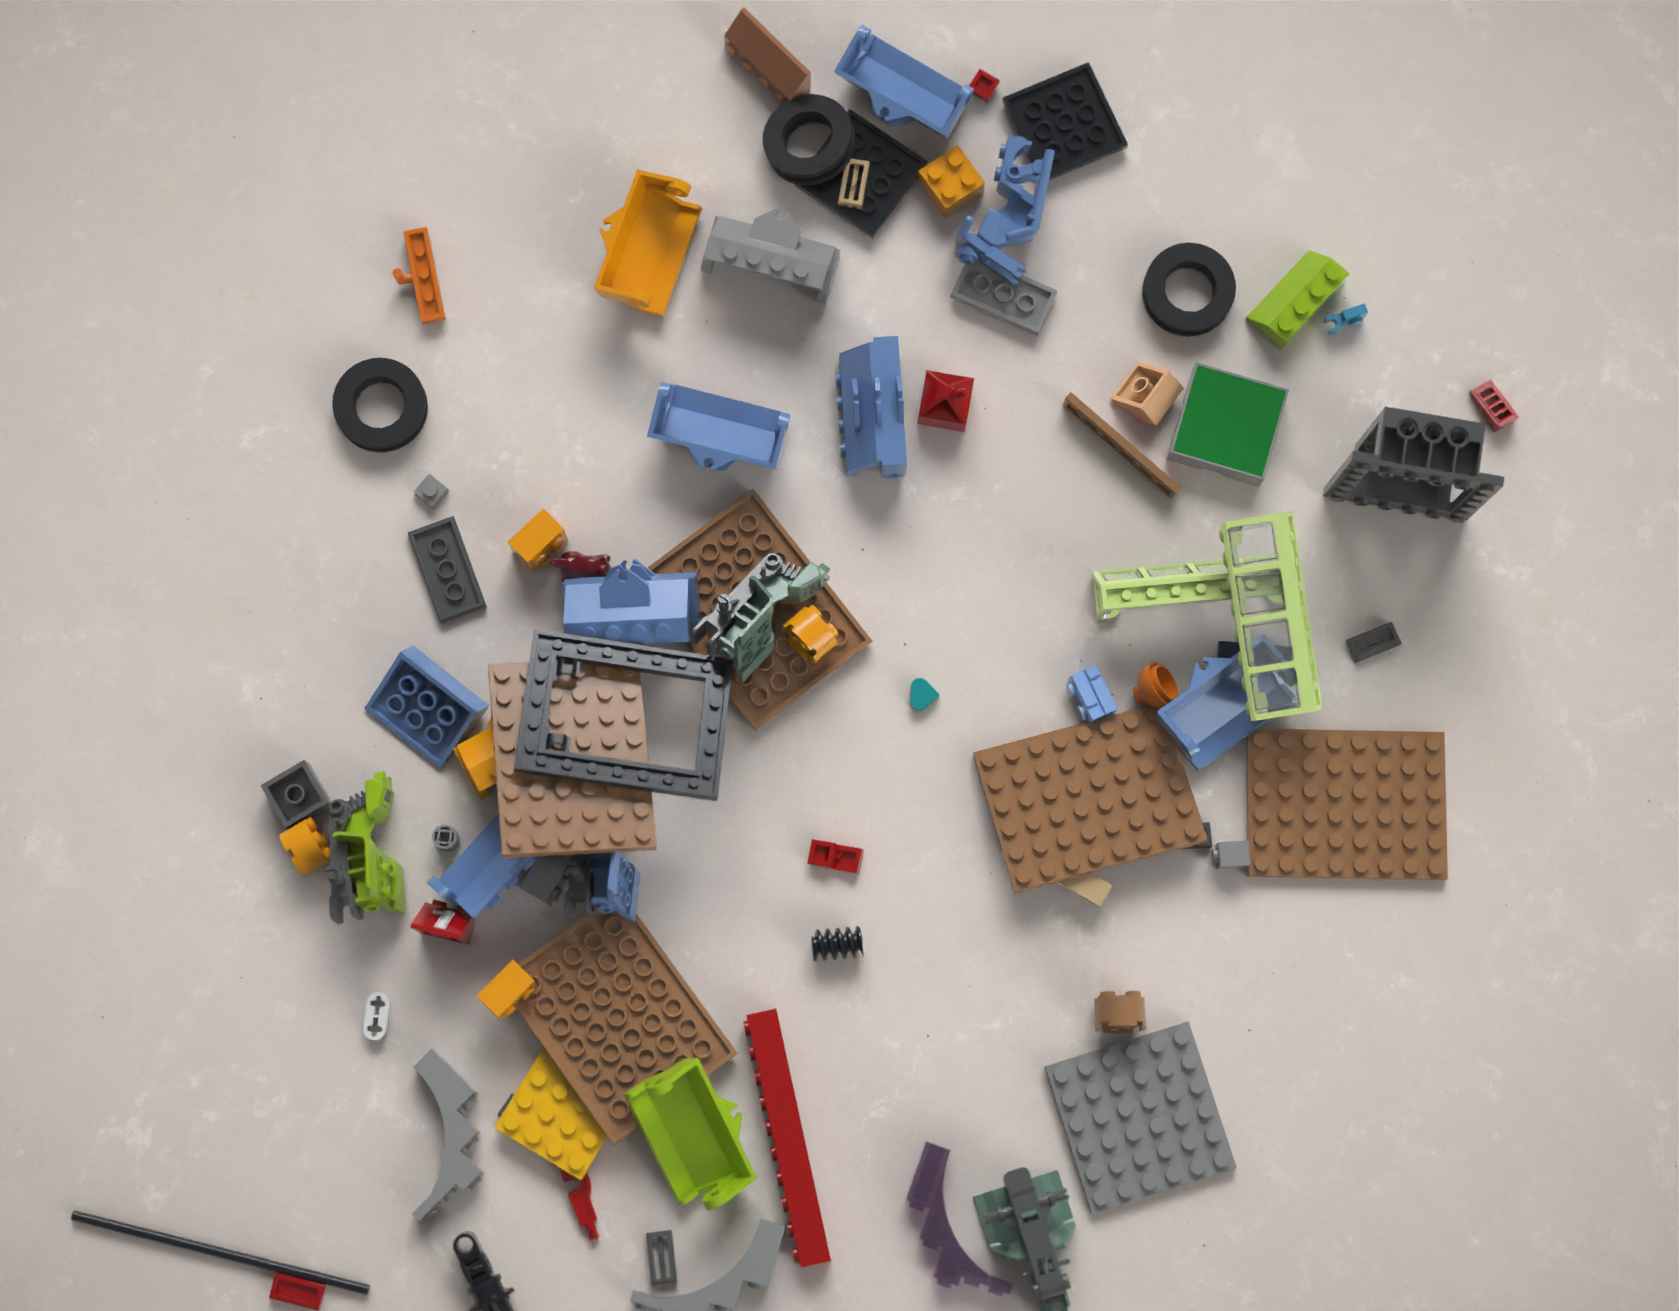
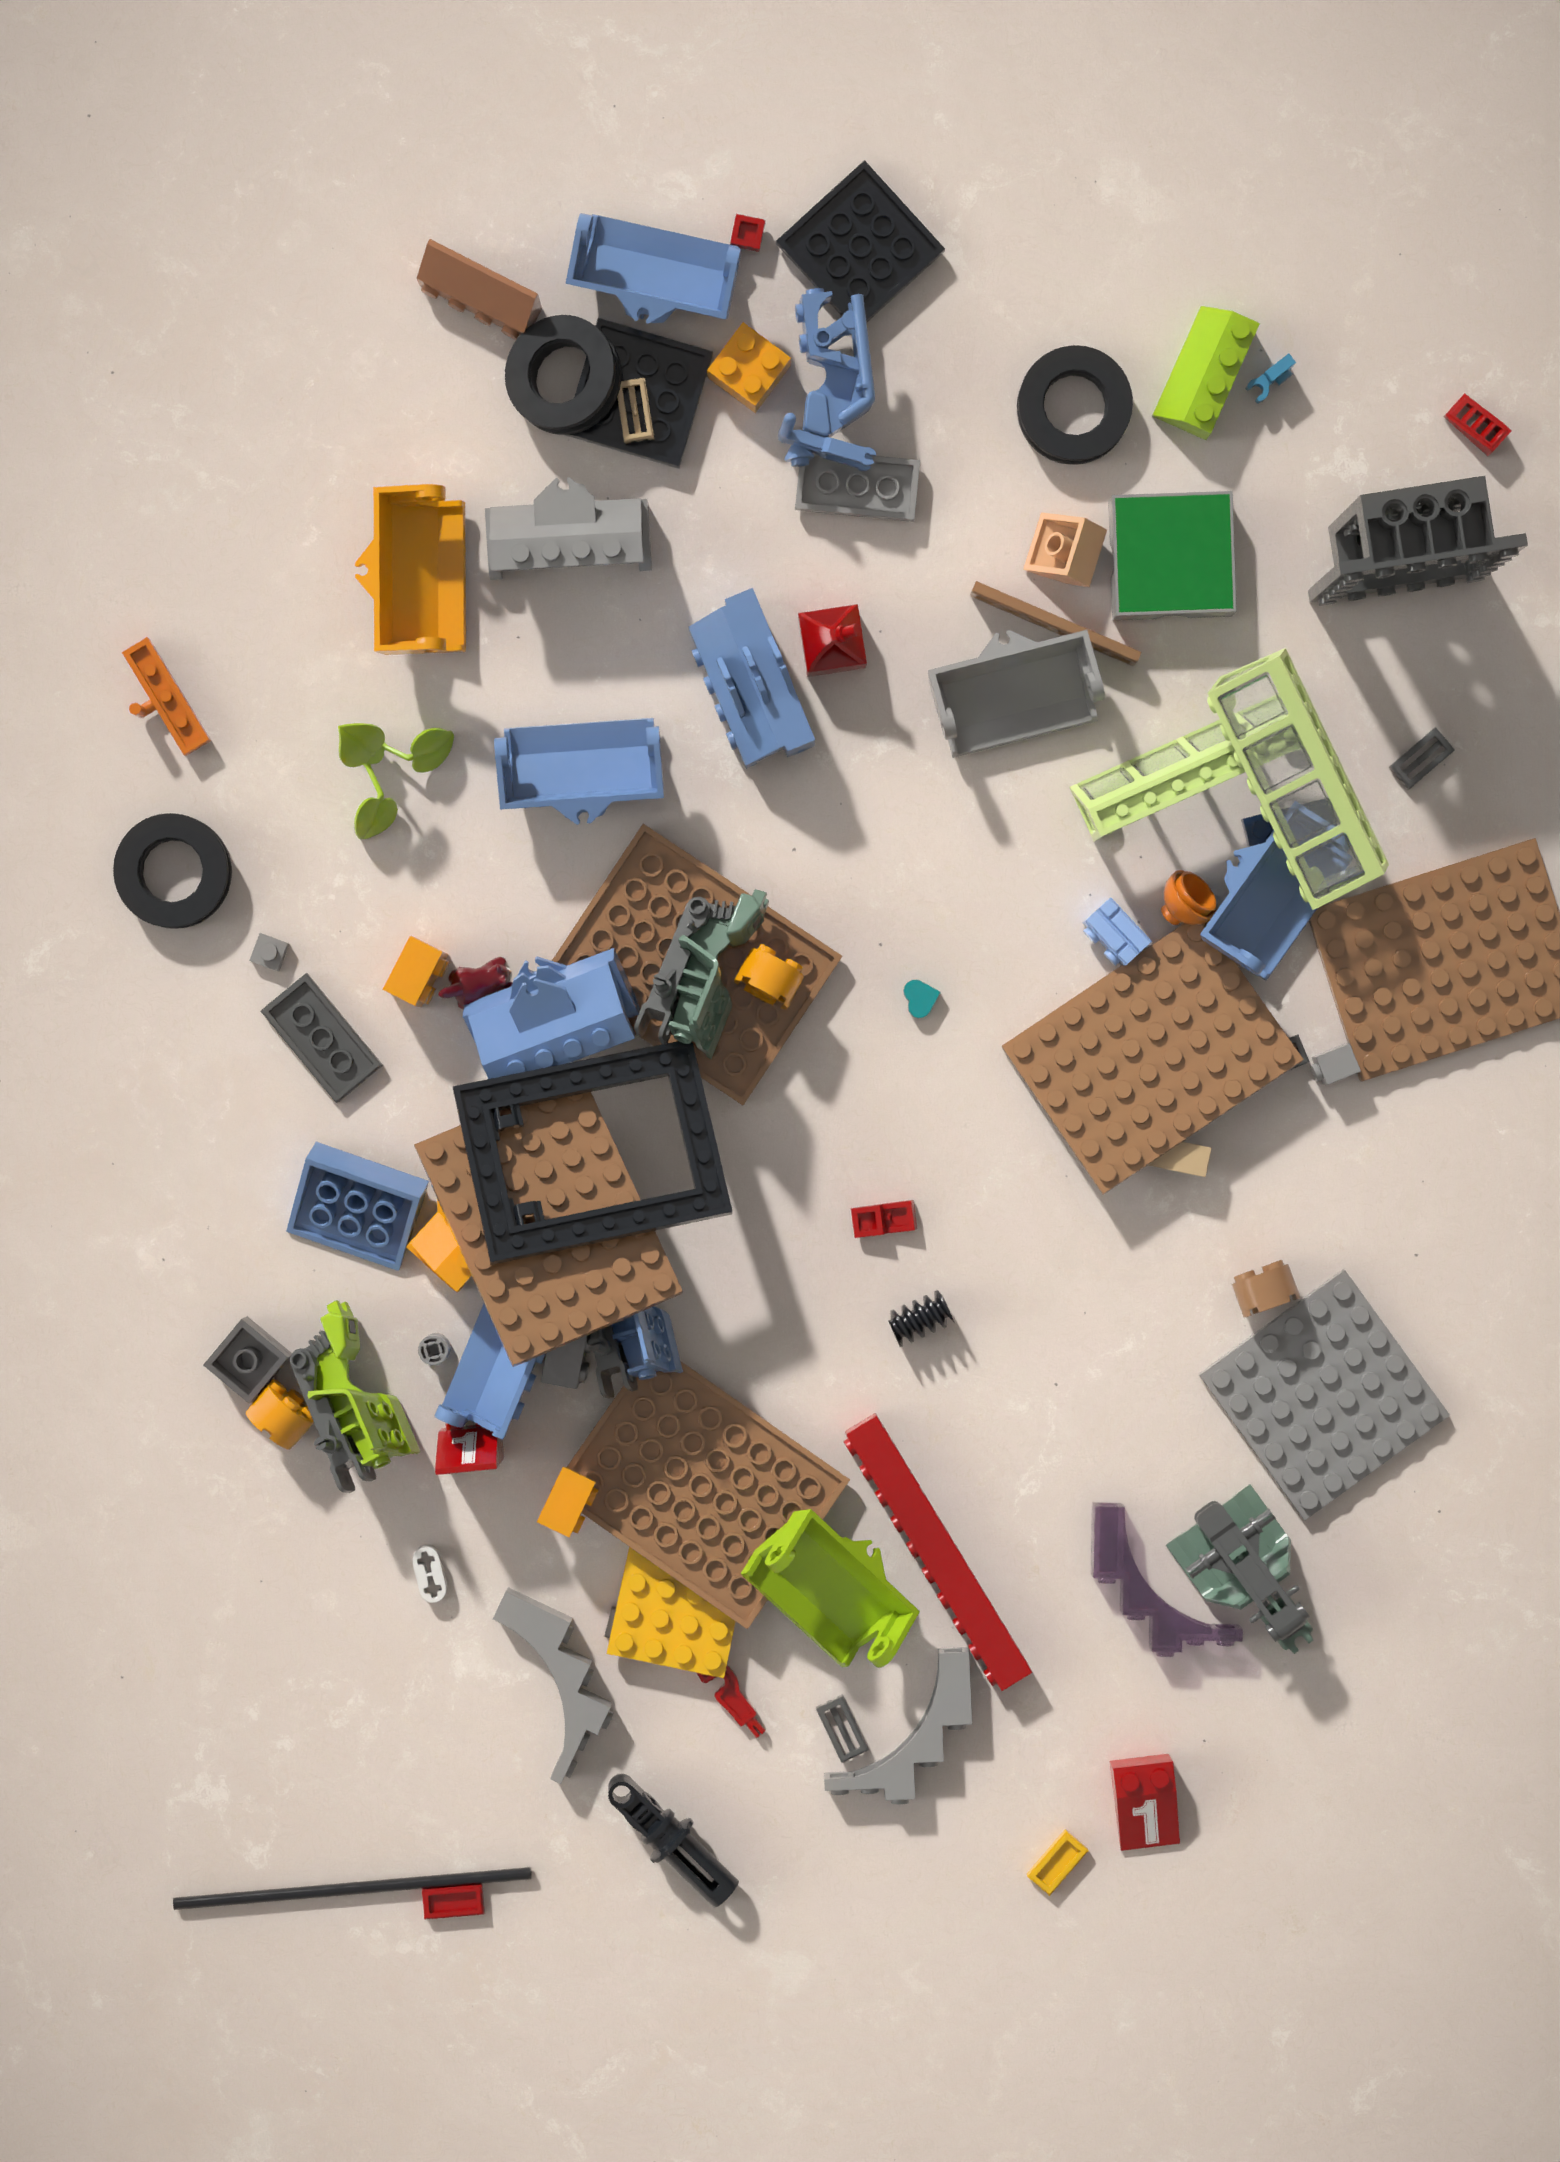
camera: 15 degrees left, 10 degrees up
(558, 353) = (365, 746): none -> lime plant
(1074, 483) = (1017, 691): none -> light grey piece

